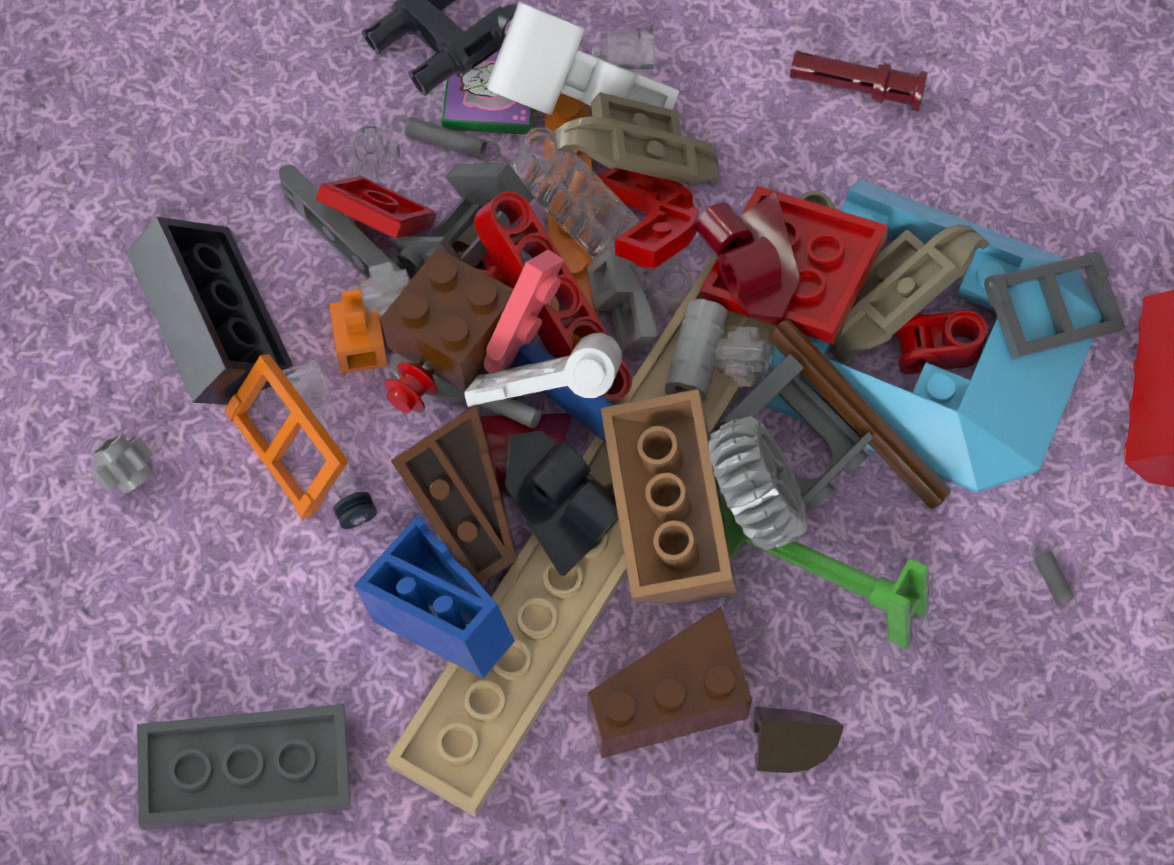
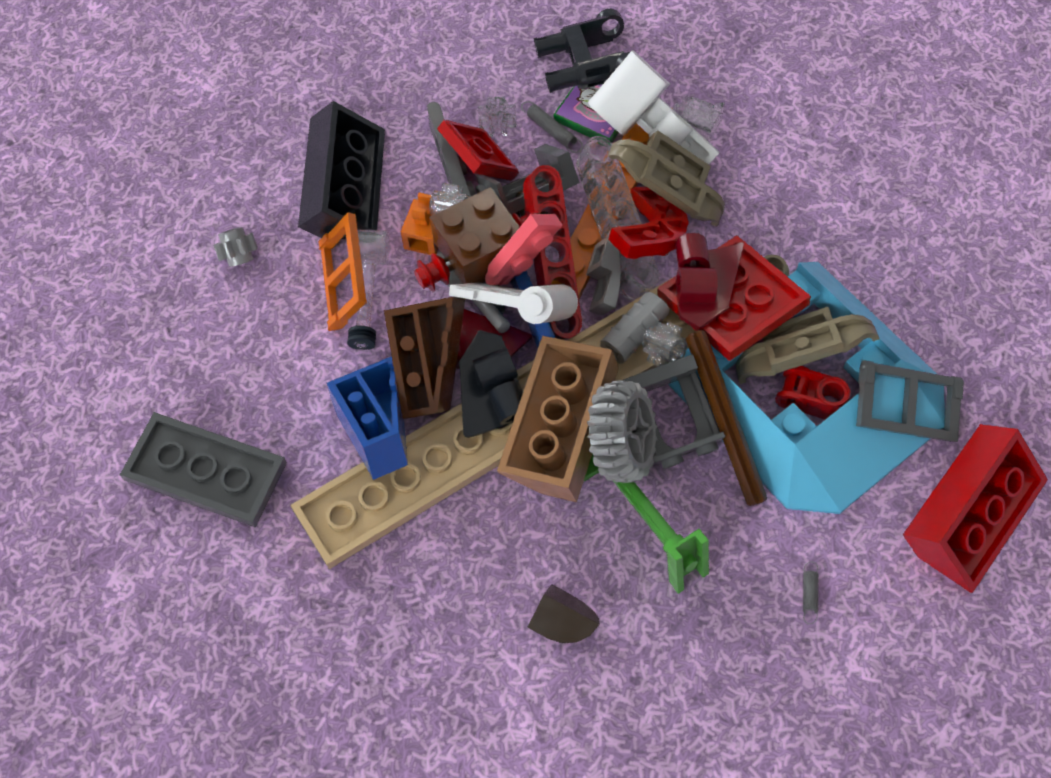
camera: 30 degrees right, 0 degrees up
(672, 691) = (496, 545): reddish brown wedge -> none
(880, 82) = (865, 202): dark red pin -> none

